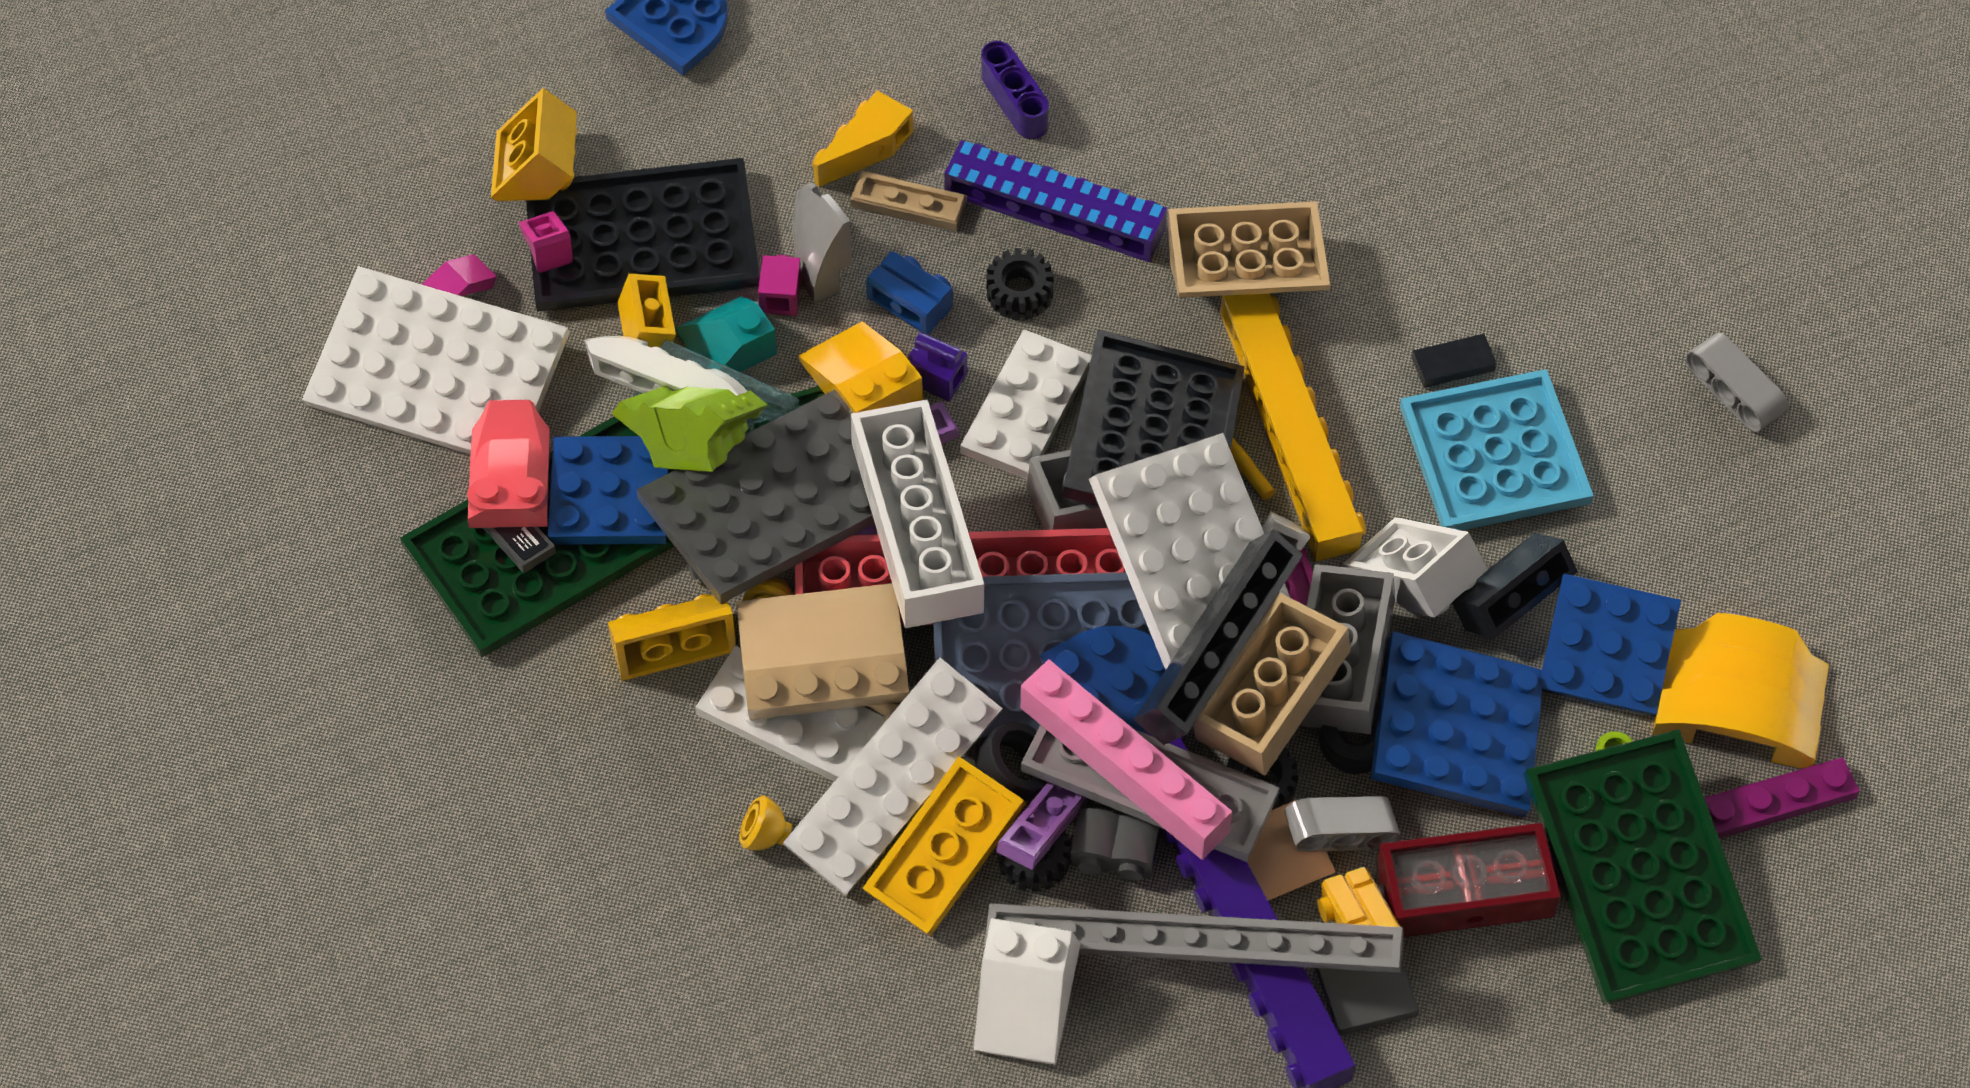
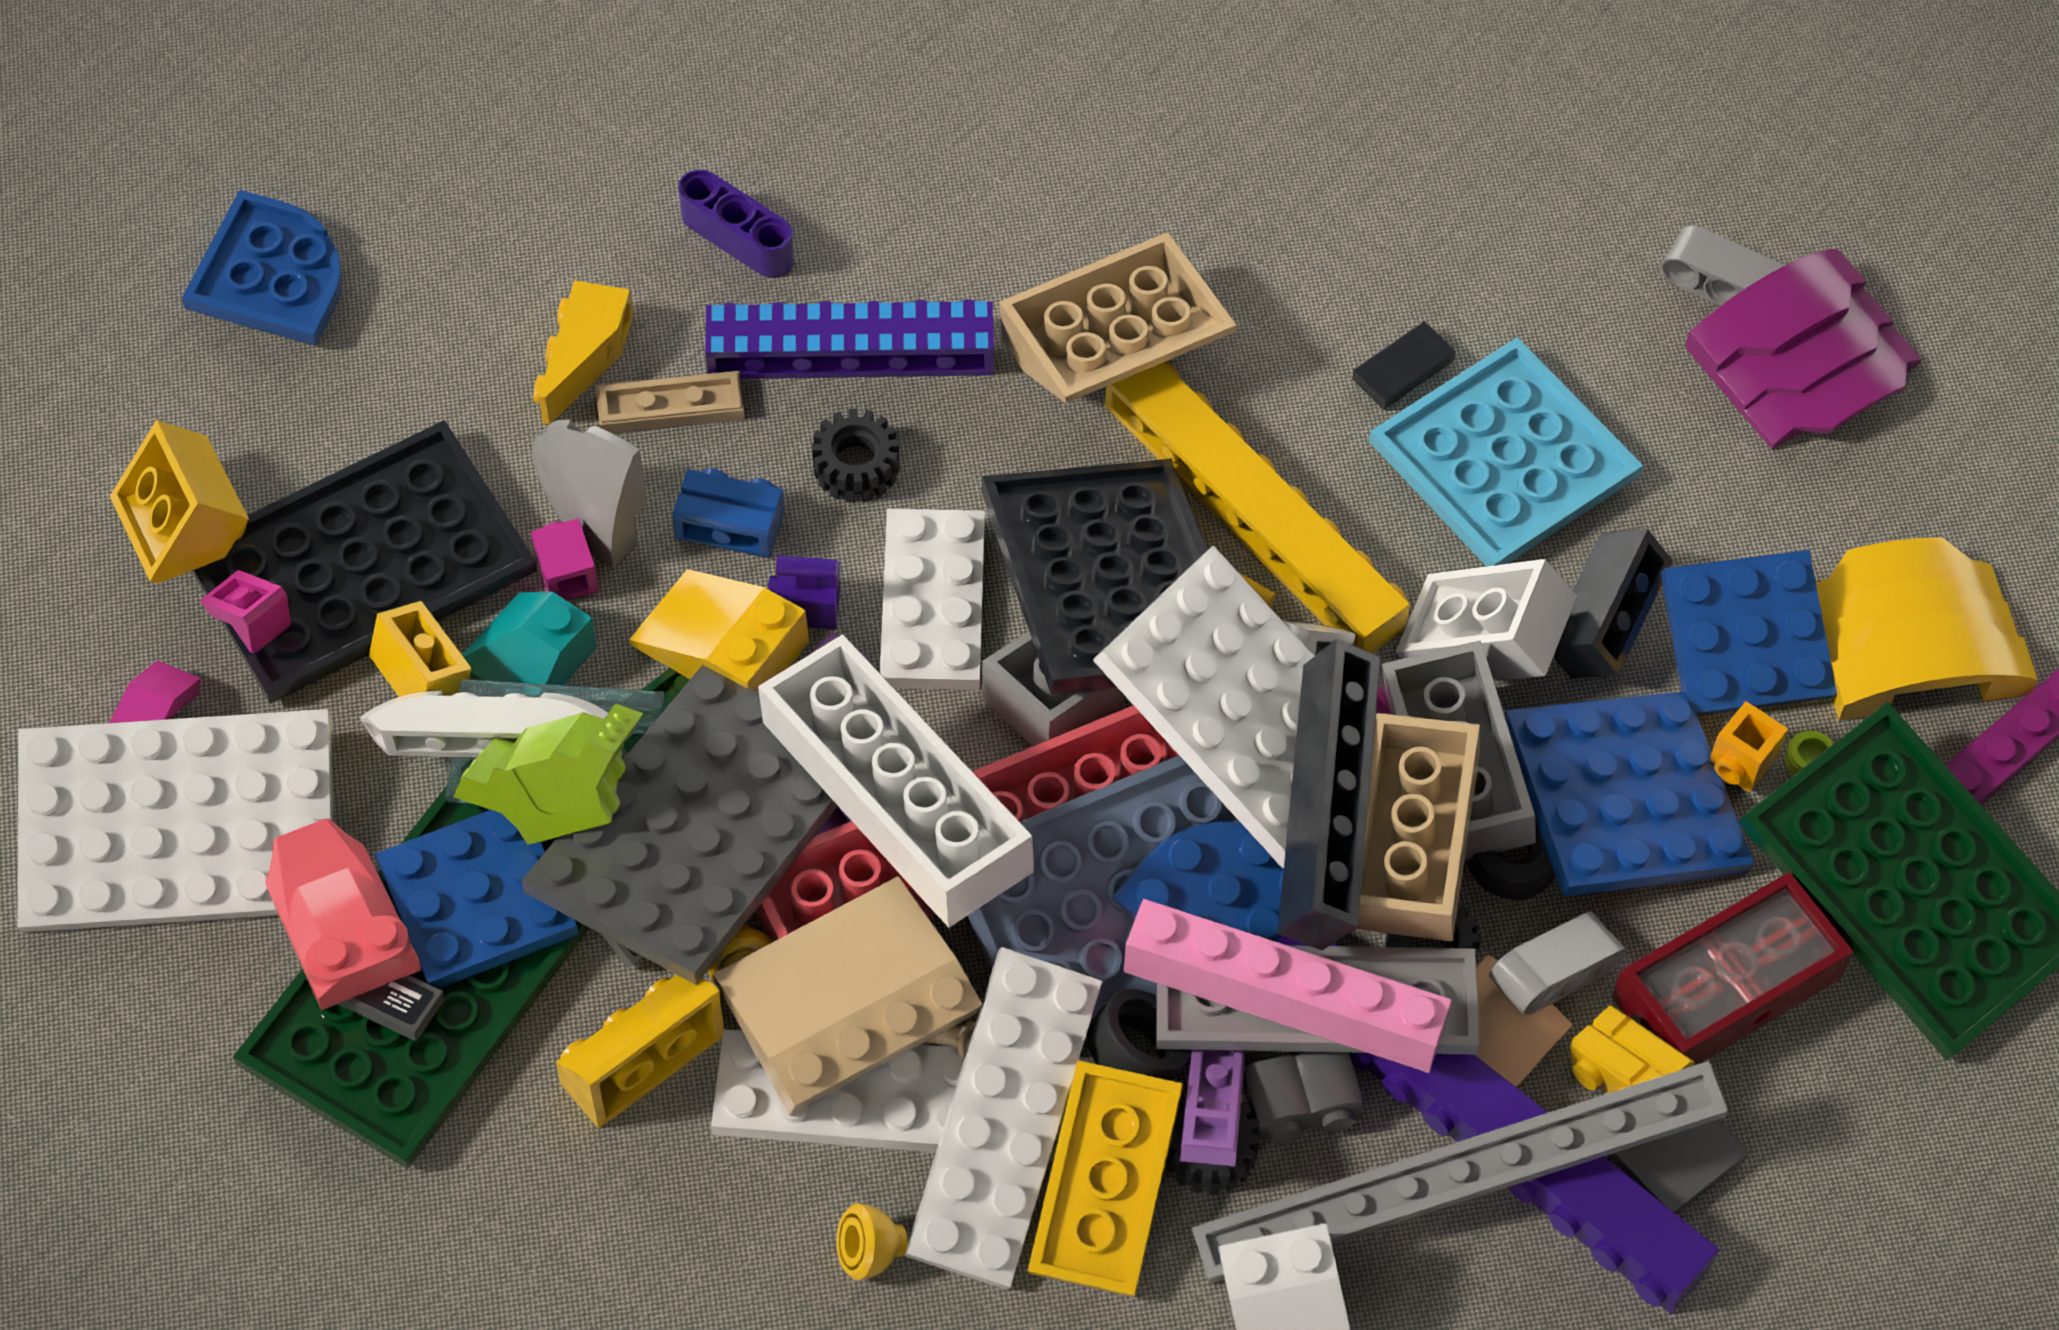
camera: 25 degrees left, 0 degrees up
(1563, 725) = (1747, 747): none -> light orange brick
(1765, 453) = (1803, 348): none -> magenta slope

